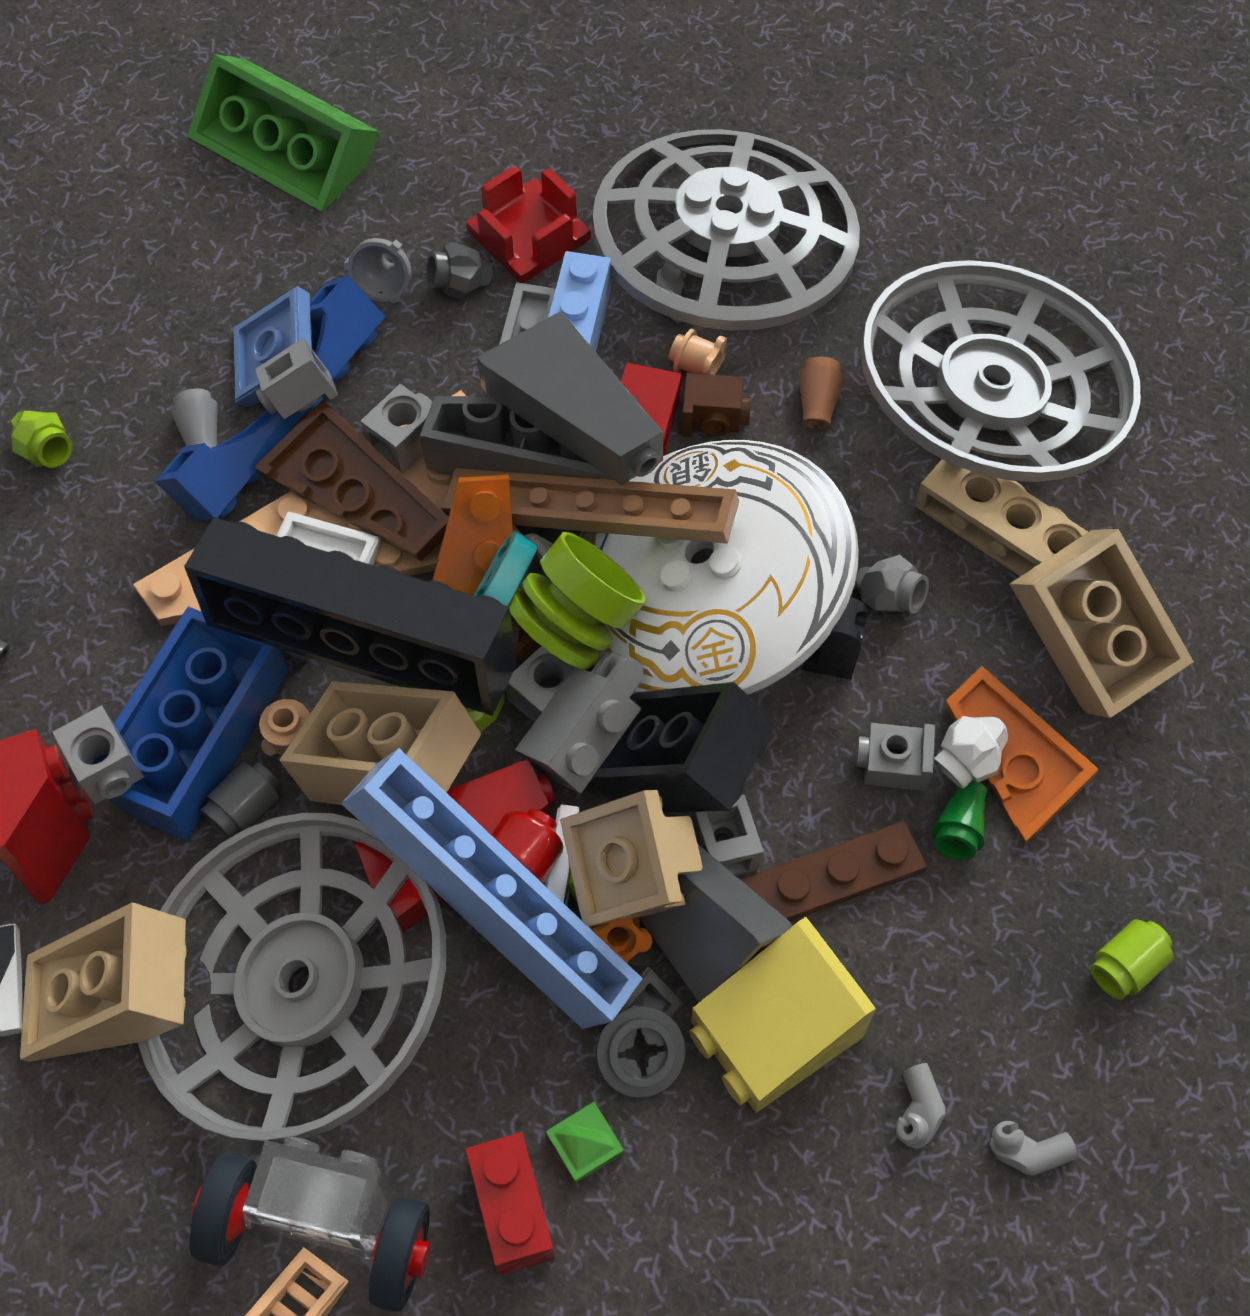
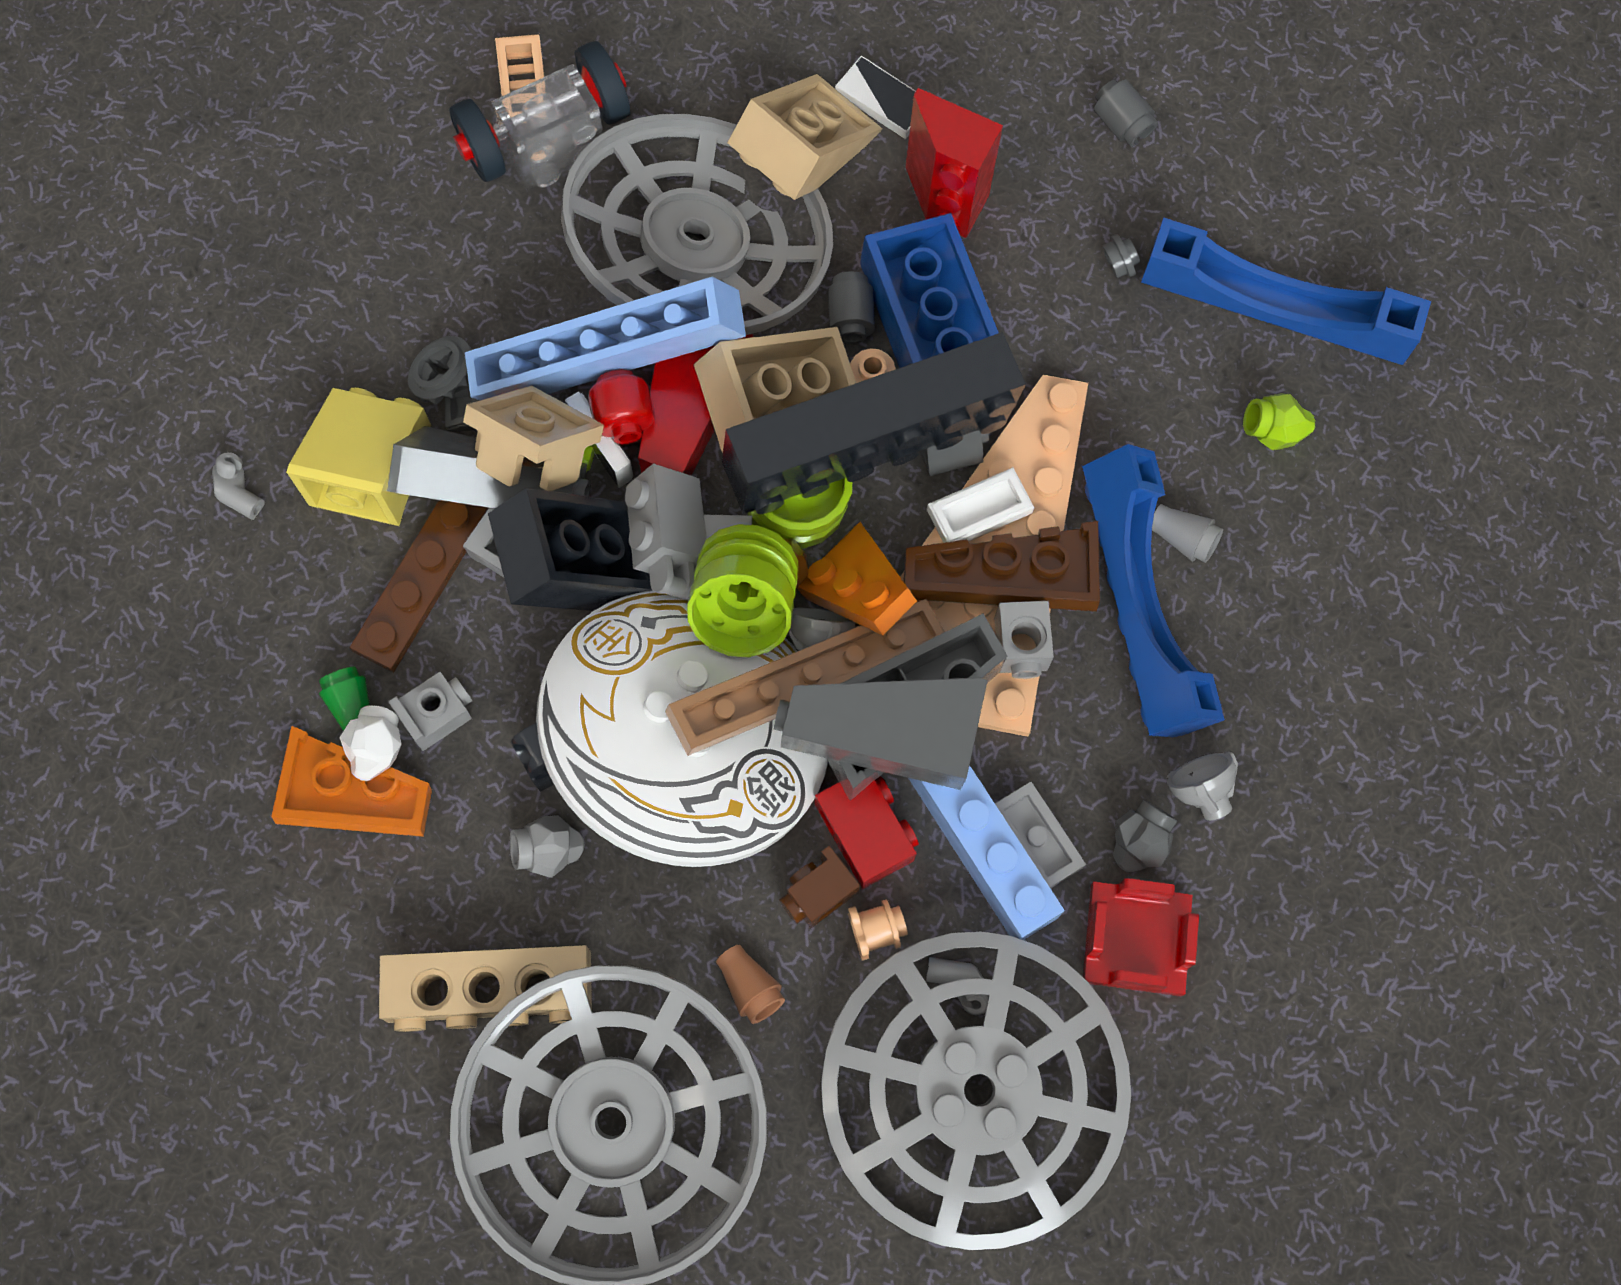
camera: 135 degrees right, 10 degrees up
(88, 739) = (943, 237): light grey brick -> none
(266, 336) = (1199, 630): medium blue tile -> none
(280, 131) = (1437, 844): bright green slope -> none
(293, 380) = (1131, 591): light grey brick -> none
(507, 568) = (811, 561): teal beam -> none
(510, 1204) = (442, 223): red brick -> none
(584, 1142) = (433, 300): bright green tile -> none
(1027, 1155) = (140, 516): light grey arm -> none
(1101, 622) = (343, 921): tan brick -> none
(1132, 959) = (154, 696): lime brick -> none

